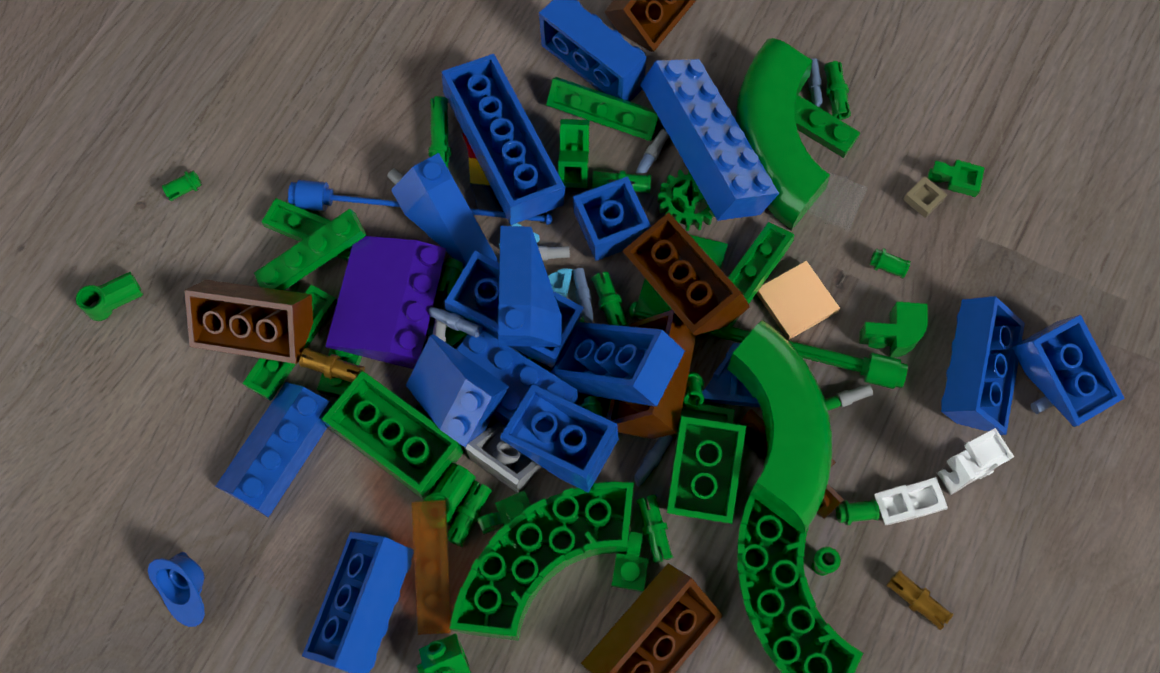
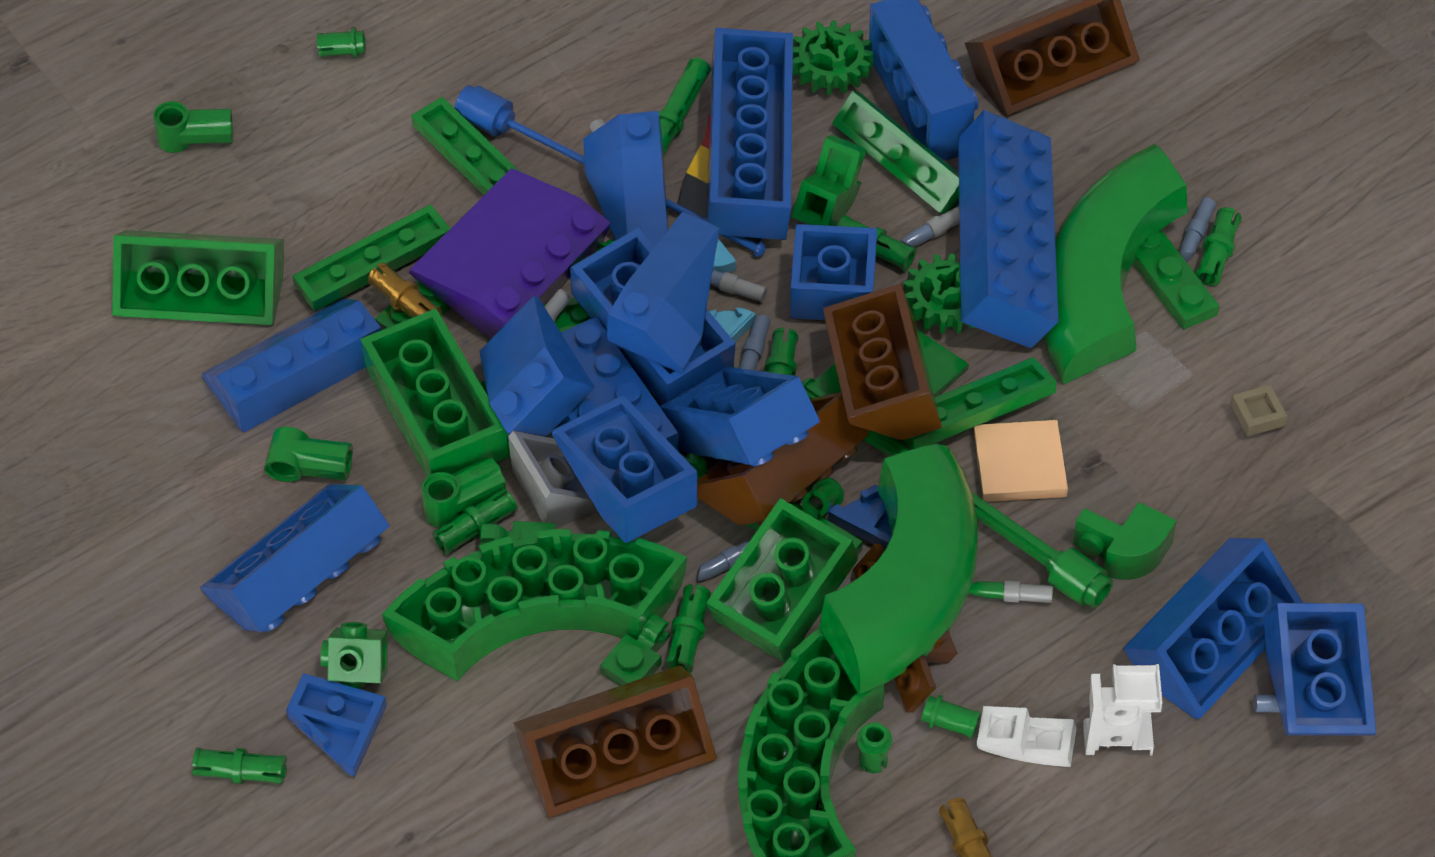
camera: 25 degrees right, 15 degrees down
(172, 413) = (197, 277): none -> green slope
(180, 587) = (106, 452): blue piece -> none
(248, 320) = (336, 210): reddish brown slope -> none
(311, 252) = (447, 169): green plate -> none
(317, 521) = (296, 454): none -> green piece
(431, 567) = (400, 545): clear orange tile -> none
(455, 321) = (575, 301): sand blue piece -> none
(522, 56) = (831, 57): none -> green gear
(889, 263) = (1164, 465): green pin -> none
(962, 176) = (1322, 407): green plate -> none

